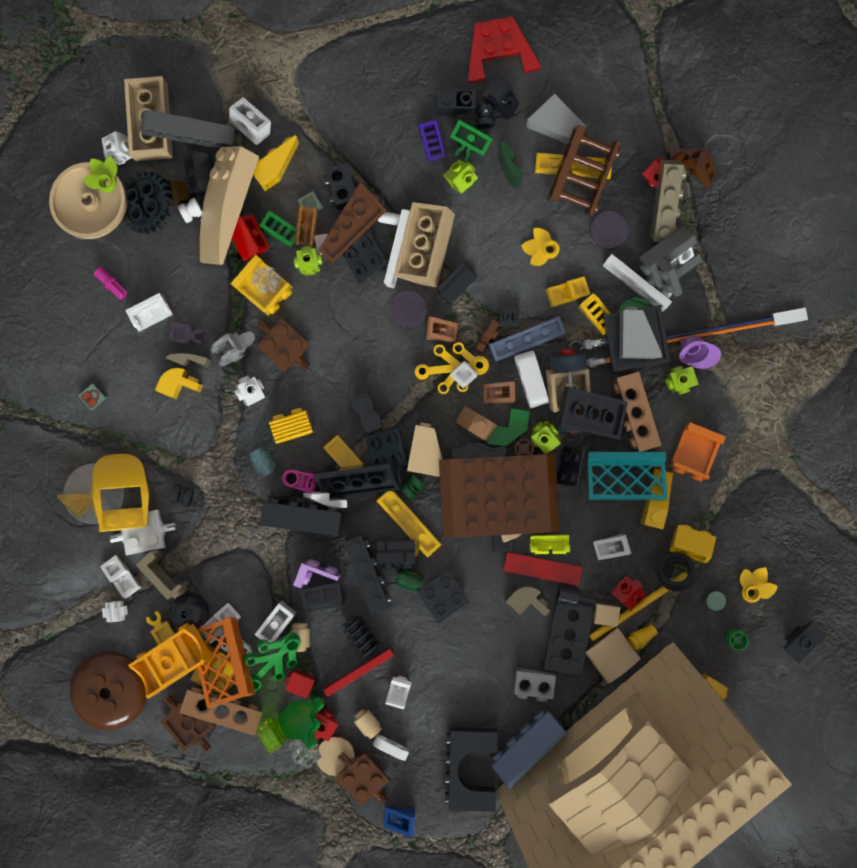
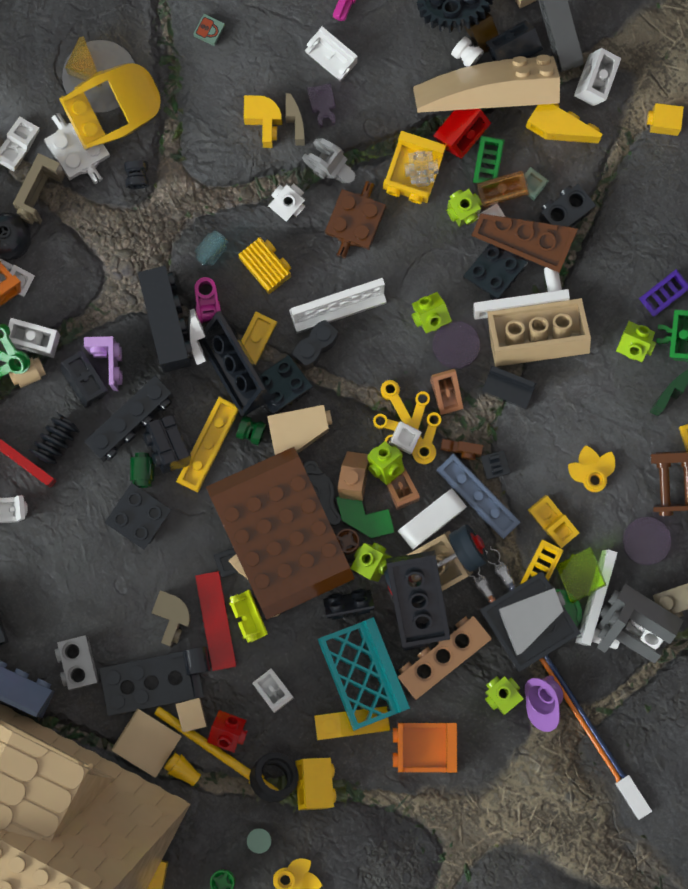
camera: 65 degrees right, 5 degrees down
(302, 84) = (665, 119): none -> yellow brick
(344, 384) = (339, 305): none -> white fence
(377, 317) = (430, 312): none -> lime brick
(477, 396) = (385, 462): none -> lime brick
(617, 287) = (581, 575): none -> clear neon green piece

